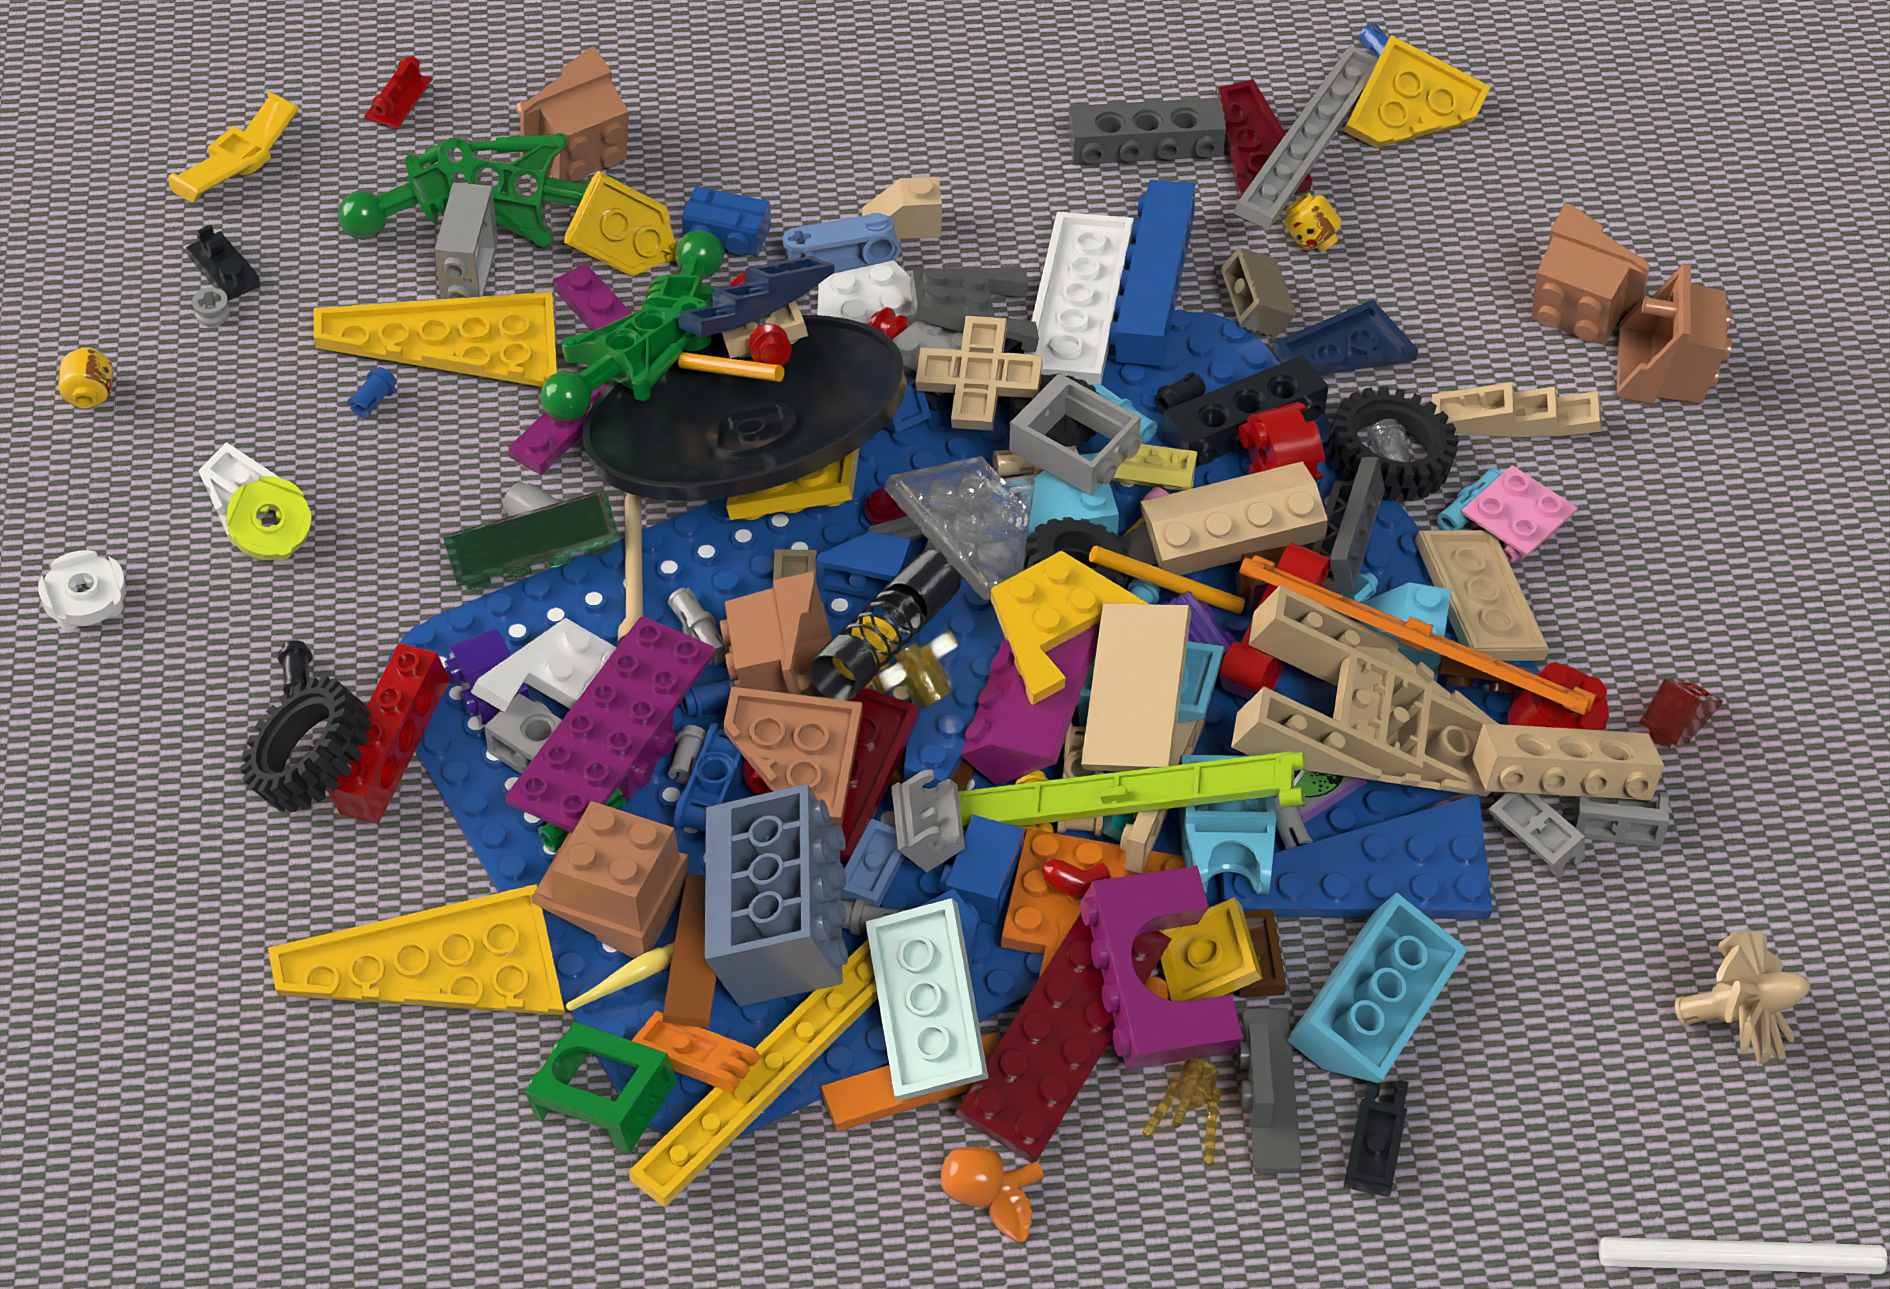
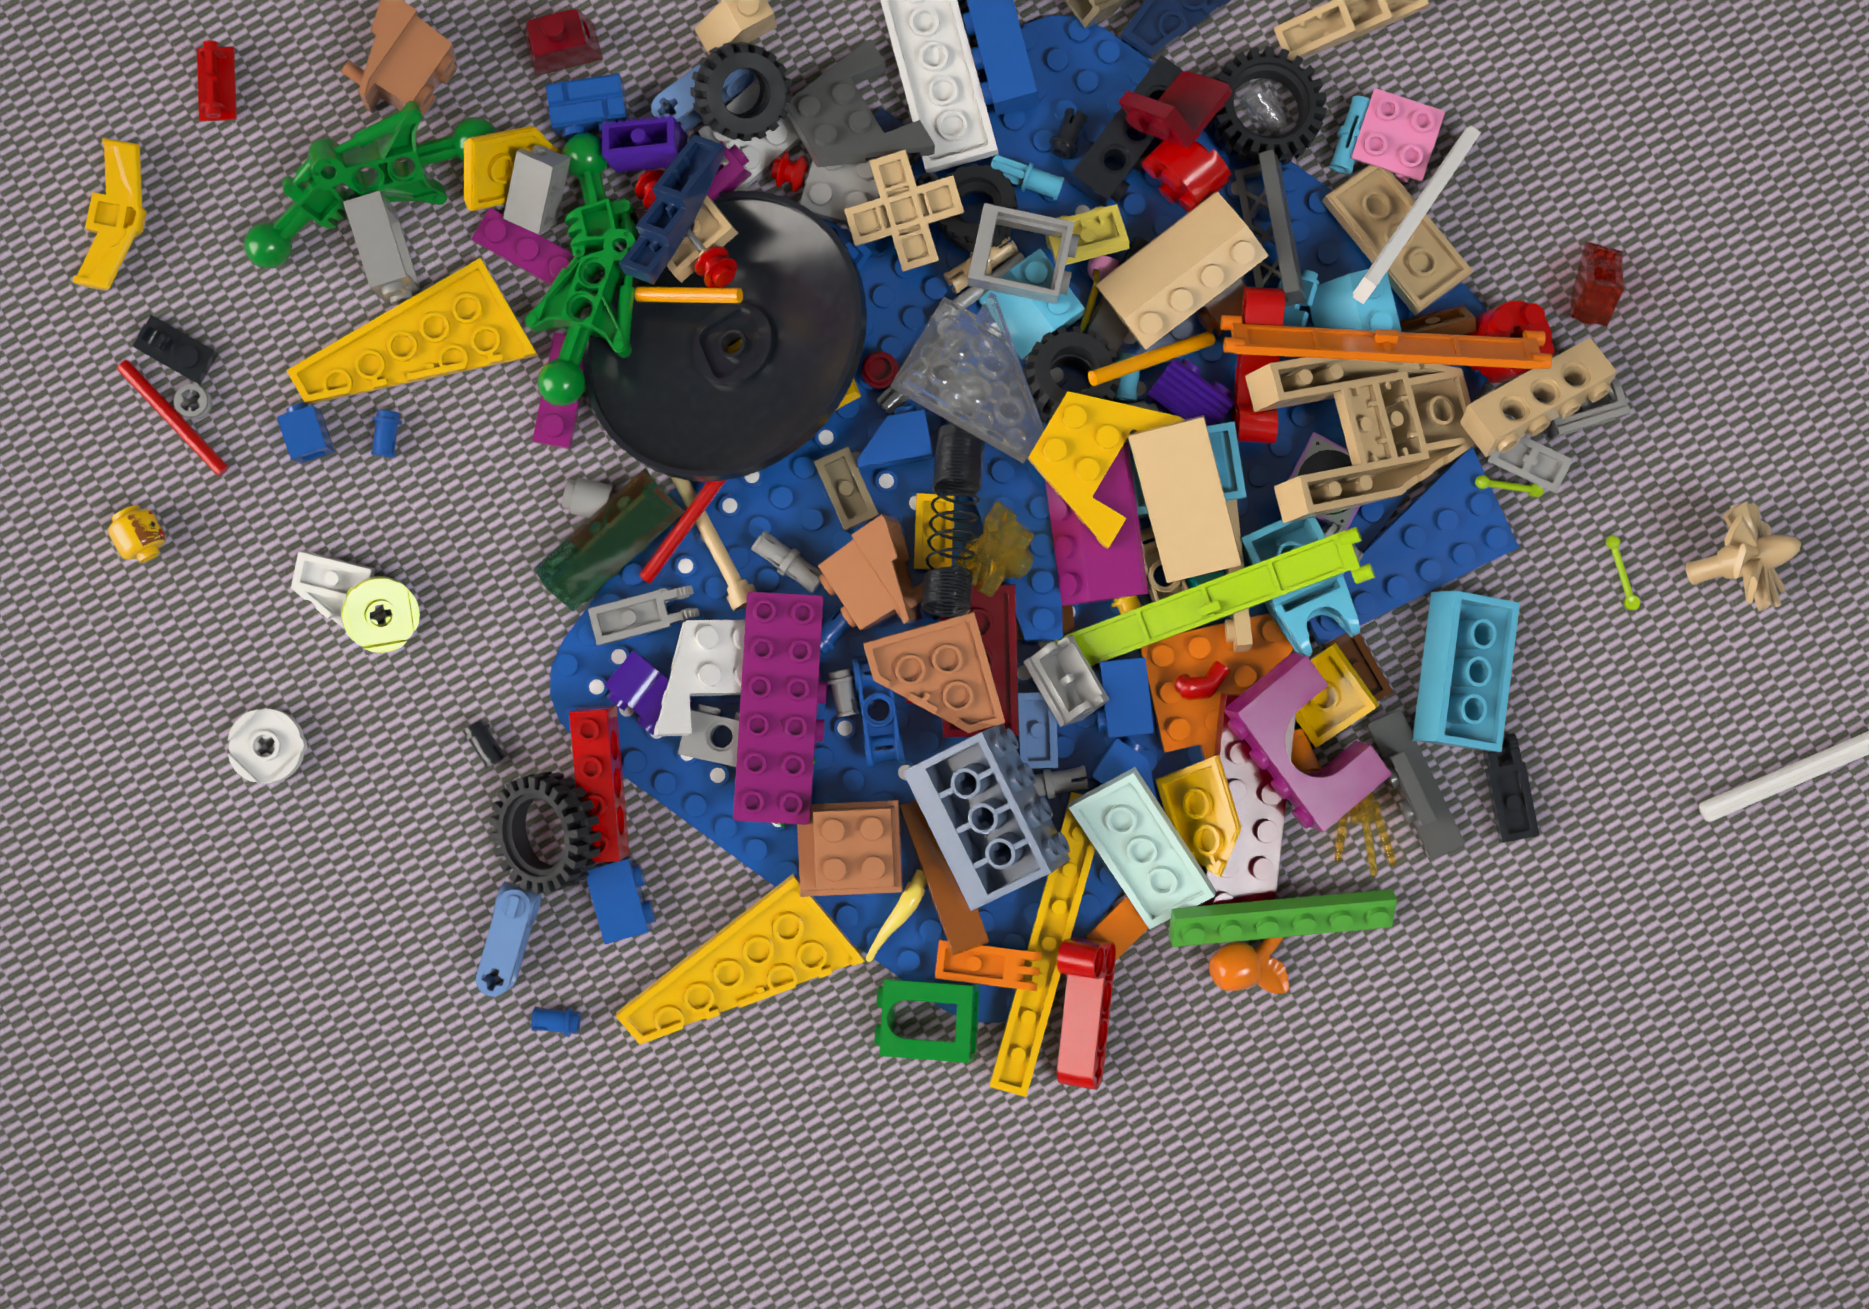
camera: 25 degrees left, 35 degrees up
(183, 314) = (172, 417): none -> red bar
(204, 837) = (507, 938): none -> medium blue piece
(212, 940) = (556, 1020): none -> blue pin
(297, 363) = (305, 433): none -> blue brick
(341, 851) = (620, 900): none -> blue brick
(519, 610) = (638, 615): none -> light grey hinge
(620, 549) = (680, 530): none -> red bar
(638, 254) = (536, 188): none -> light grey hinge
(732, 161) = (561, 41): none -> dark red torso
(750, 247) = (642, 143): none -> dark purple brick
(785, 1141) = (1086, 1010): none -> beam
(827, 301) = (731, 175): none -> magenta bracket
(880, 208) = (771, 98): none -> black tyre
(1013, 994) = (1202, 811): none -> yellow tile
(1052, 1143) = (1282, 918): none -> bright green plate
(1271, 381) = (1180, 111): none -> dark red bracket
(1502, 562) = (1415, 214): none -> white tile
(1534, 871) = (1532, 489): none -> lime hinge
(1602, 1015) = (1630, 602): none -> lime hinge

